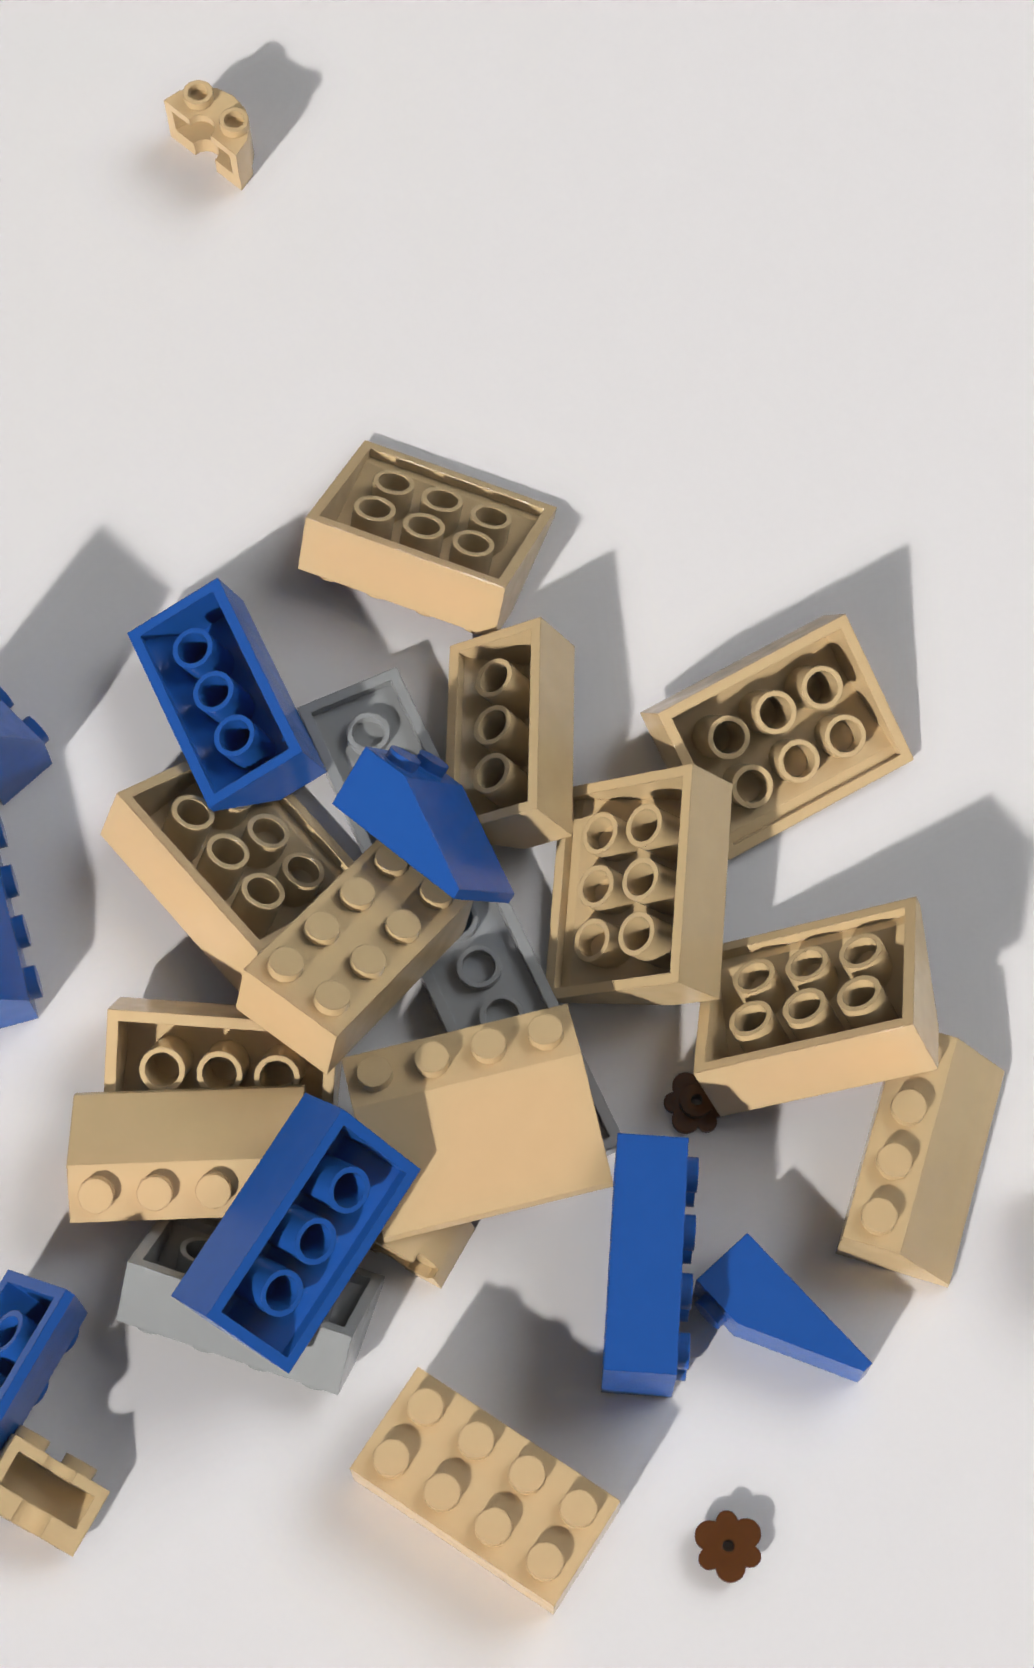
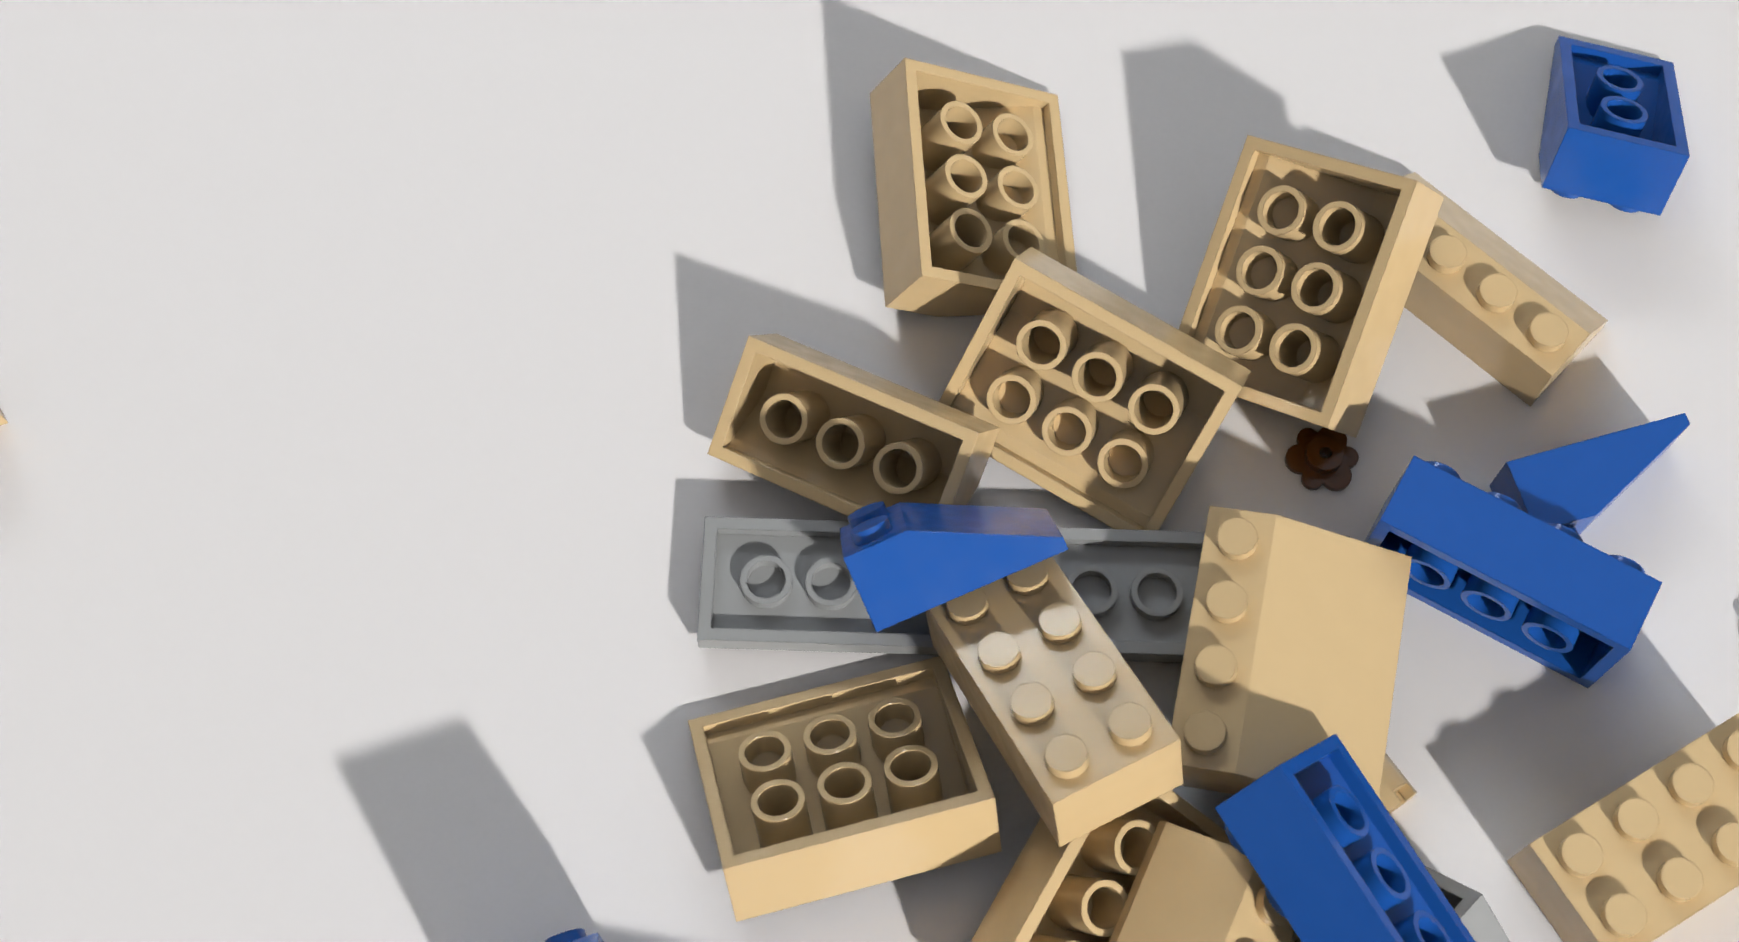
camera: 65 degrees left, 0 degrees up
(226, 700) = (650, 710): blue slope -> none
(425, 538) = (567, 420): tan slope -> none

